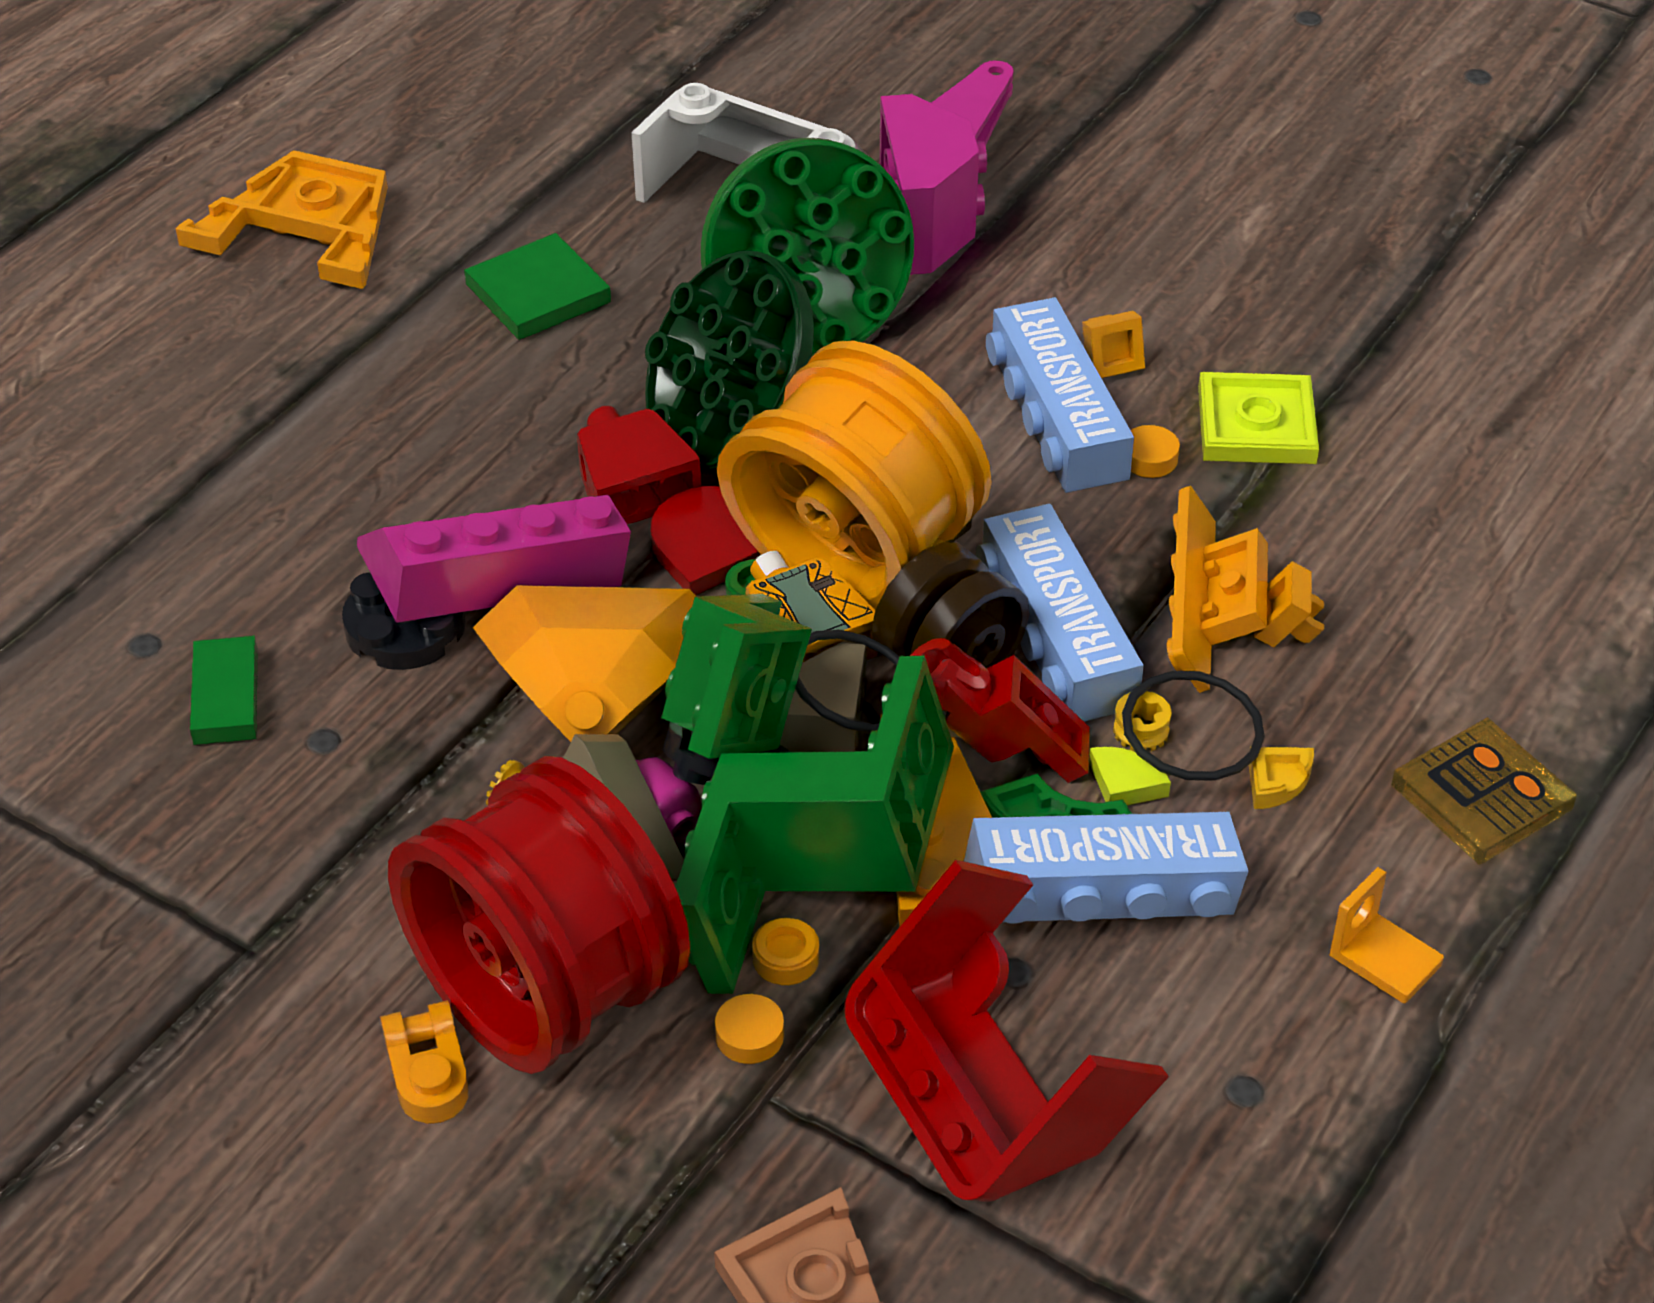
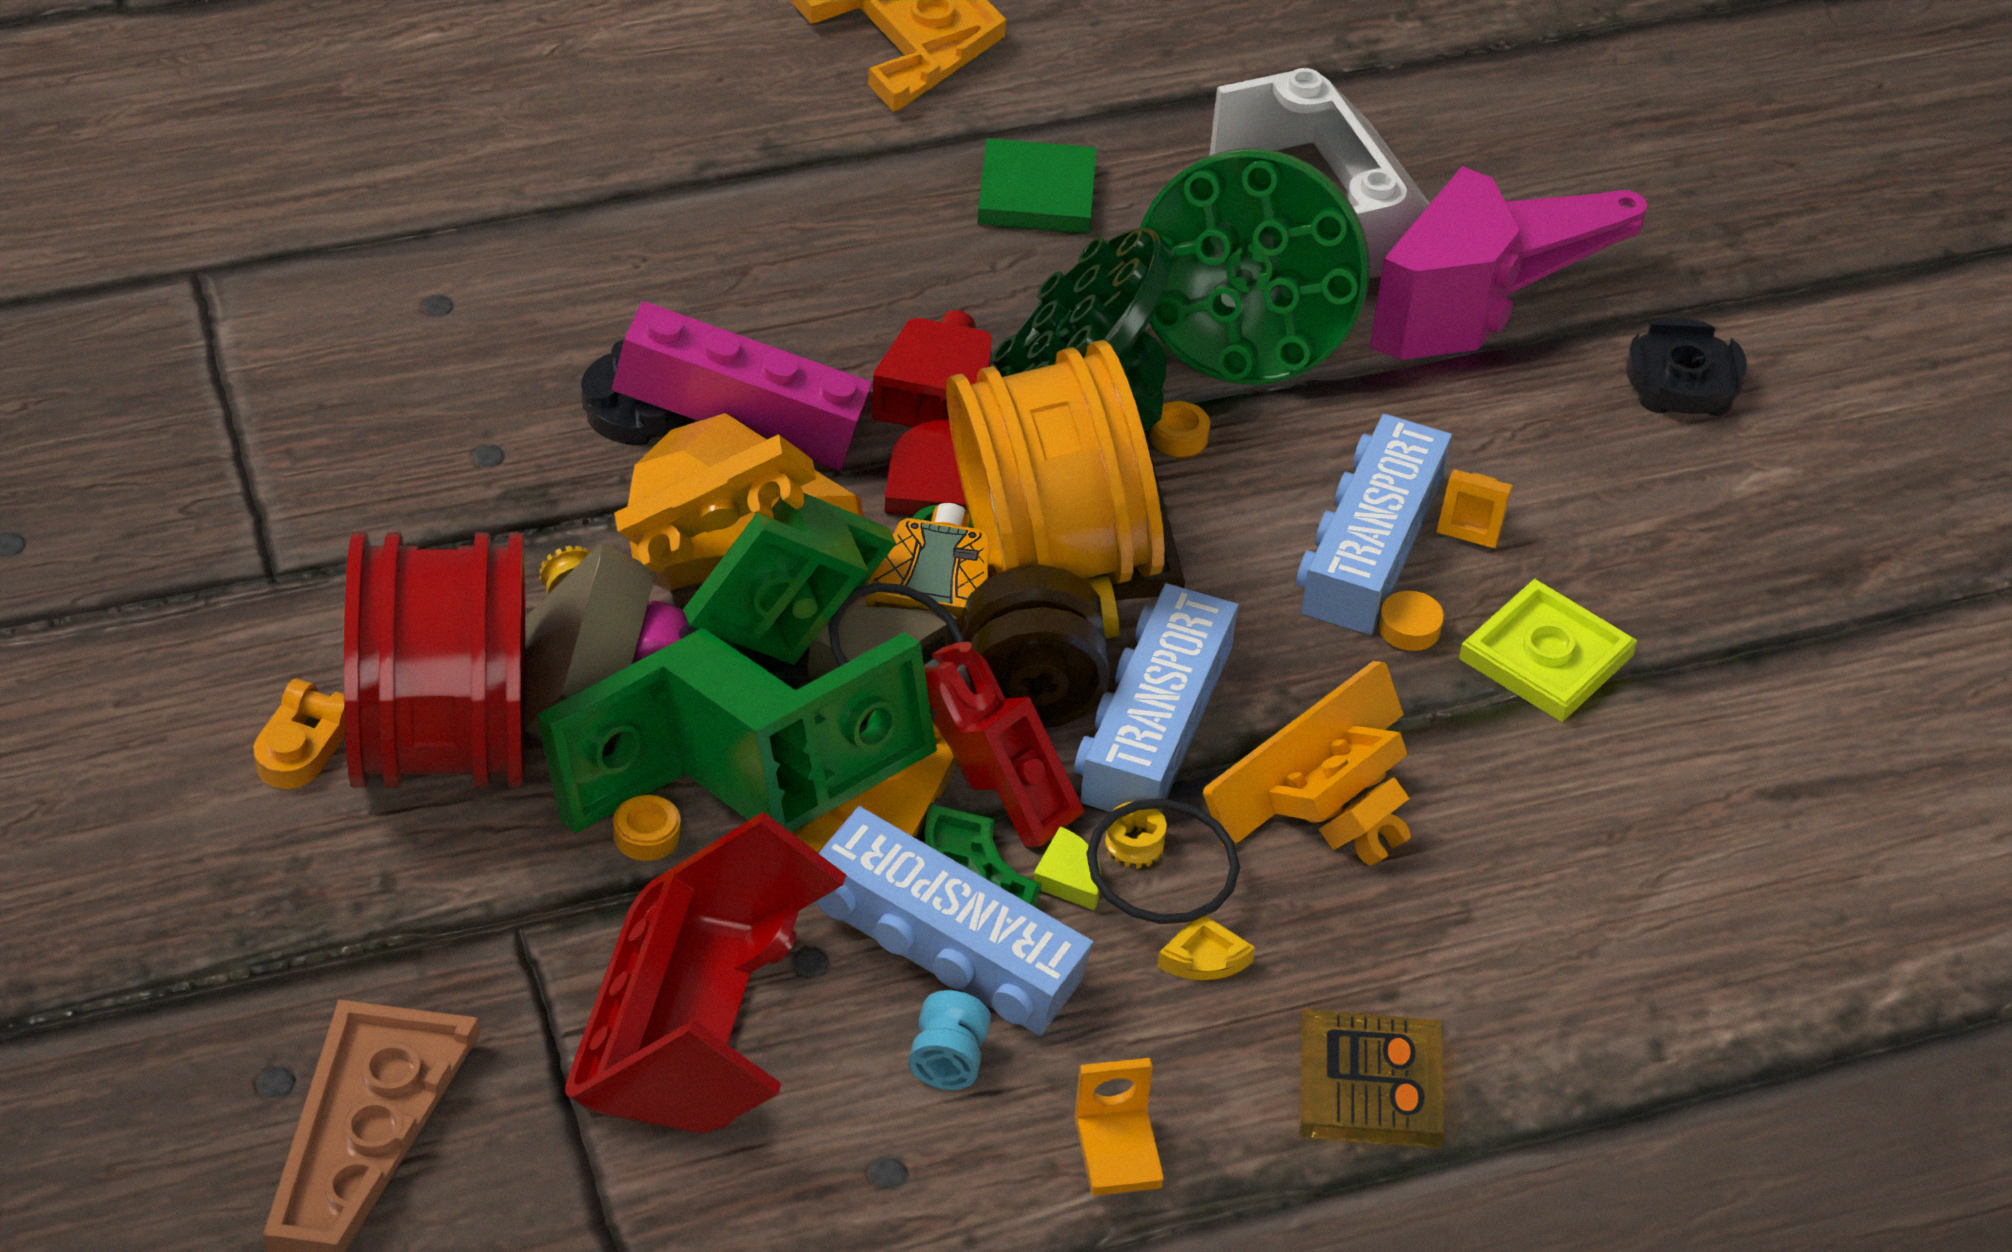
camera: 35 degrees right, 0 degrees up
(224, 690) = (451, 371): green tile -> none
(646, 643) = (715, 499): none -> light orange plate
(749, 1028) = (554, 865): light orange tile -> none
(1132, 171) = (1705, 387): none -> black plate
(1199, 961) = (945, 1051): none -> medium azure wheel

